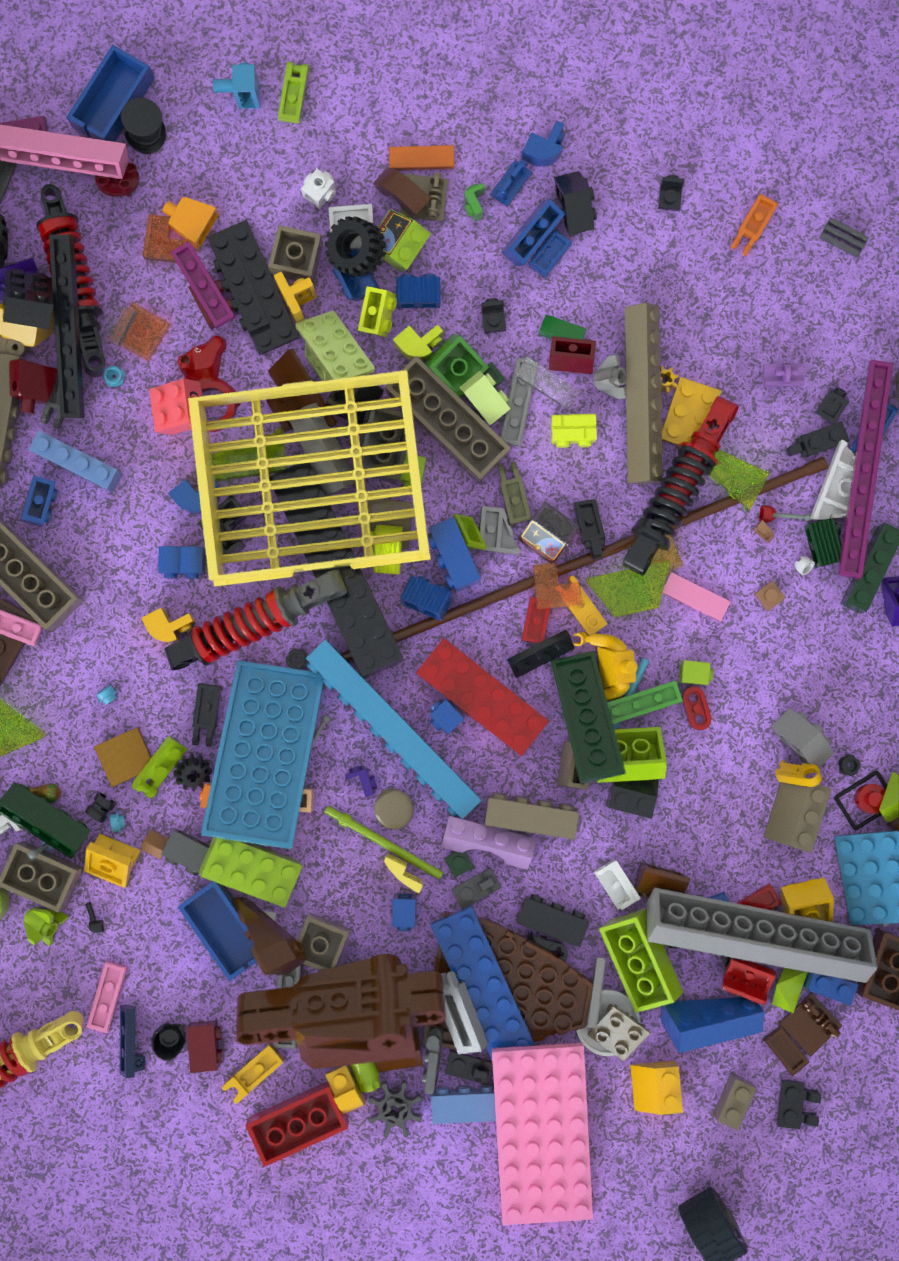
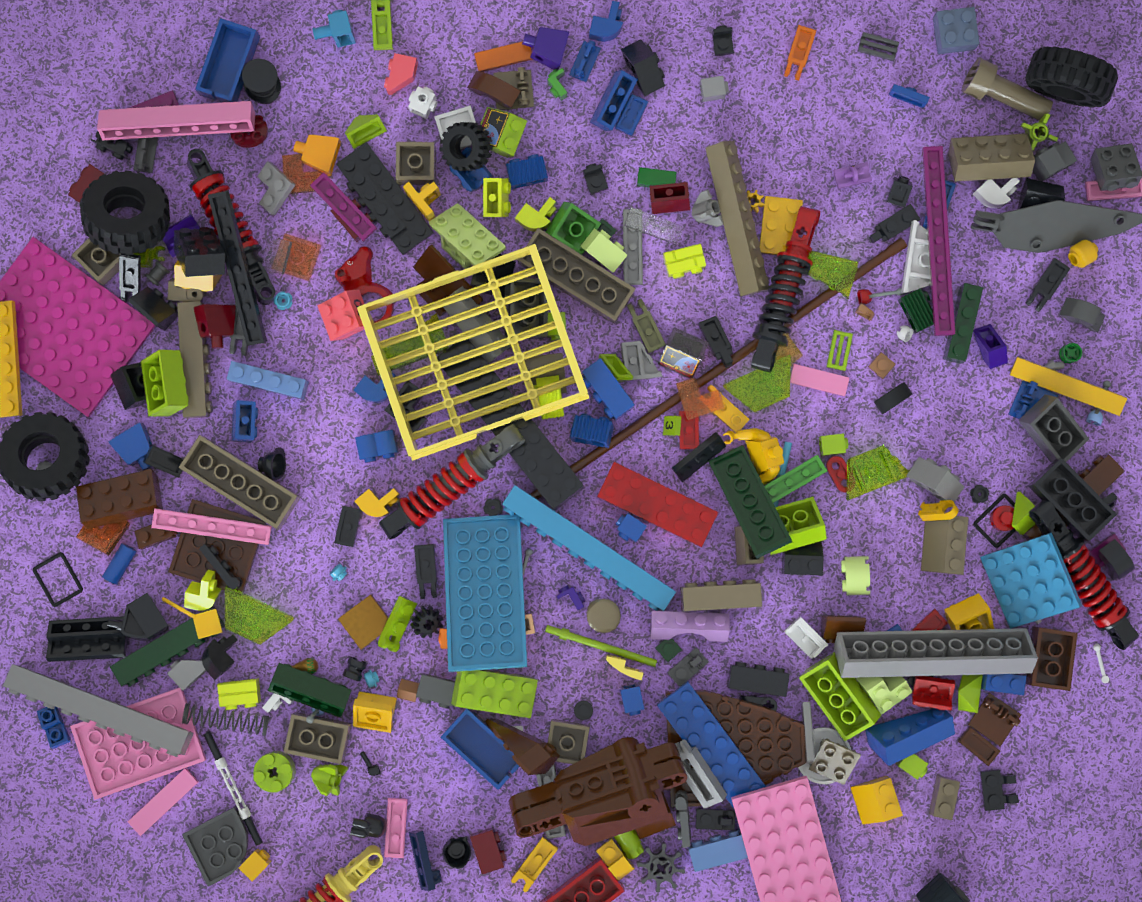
camera: 10 degrees left, 0 degrees up
(61, 557) = (273, 464): none -> black piece
(79, 989) = (371, 826): none -> black piece
(129, 645) = (348, 526): none -> black plate
(137, 248) = (279, 187): none -> light grey plate
(247, 205) = (364, 129): none -> lime slope
(303, 151) = (402, 72): none -> coral slope
(347, 910) = (583, 710): none -> black plate
(472, 156) = (547, 46): none -> dark purple torso
(518, 611) = (672, 425): none -> lime tile
(648, 244) = (713, 88): none -> light grey brick
(690, 827) = (856, 575): none -> yellowish green brick
(694, 966) = (885, 691): none -> yellowish green brick
(708, 1058) = (913, 766): none -> lime brick
(733, 551) = (832, 347): none -> lime tile
(733, 713) = (872, 471): none -> clear neon green wing
(775, 635) = (893, 398): none -> black tyre
(867, 299) = (909, 95): none -> blue plate

